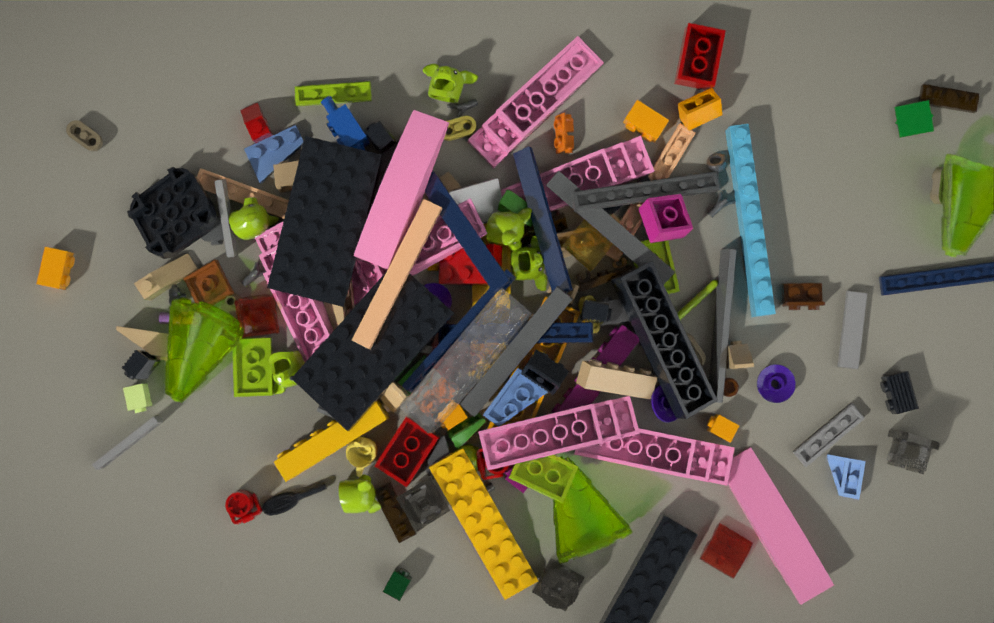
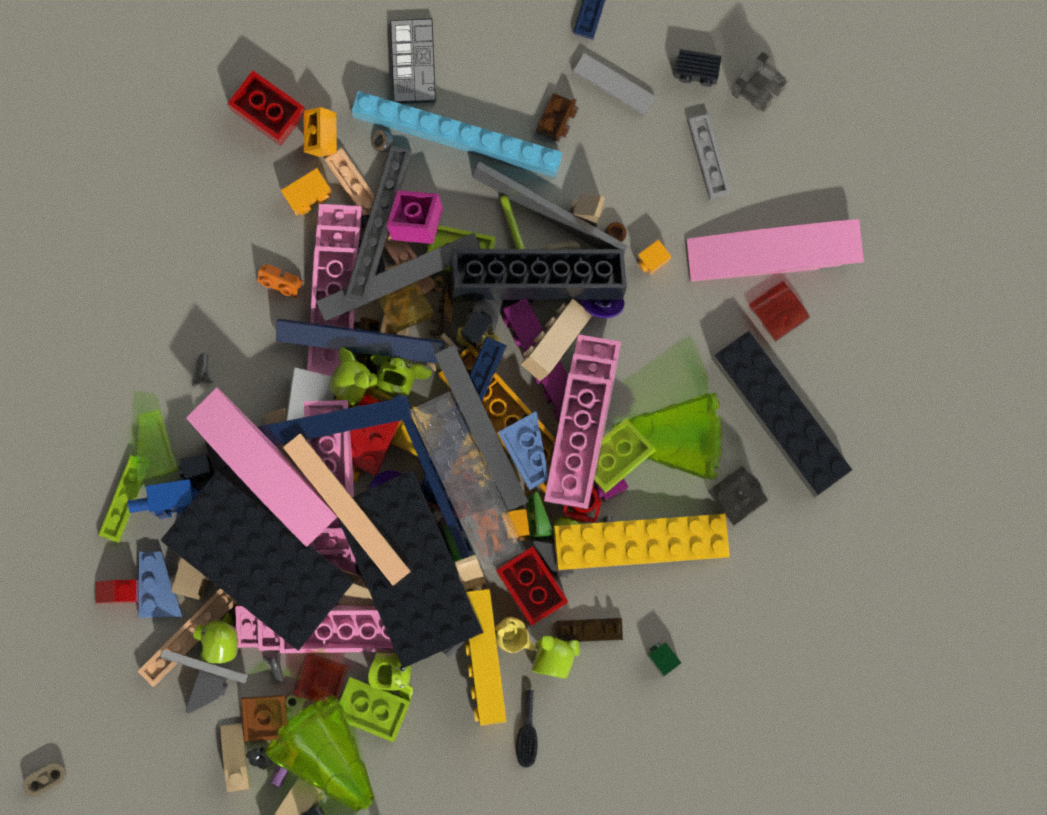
camera: 65 degrees left, 5 degrees down
(172, 213) = (172, 719): black tile -> none
(240, 504) = (508, 785): red piece -> none
(383, 96) = (153, 447): none -> clear neon green wing
(423, 503) = (592, 592): clear smoke piece -> none
(447, 82) = (170, 374): lime piece -> none
(458, 131) = (227, 385): light yellow plate -> none
(513, 203) = (328, 362): bright green slope -> none
(535, 102) = (233, 294): bright pink slope -> none
(545, 372) = (515, 406): black brick -> none
(667, 455) = (655, 326): bright pink slope -> none
(720, 205) = (426, 156): dark grey bar -> none
(784, 388) = (635, 174): dark purple dish -> none
(794, 157) = (413, 61): none -> tile
(847, 475) = (757, 156): light blue wing -> none

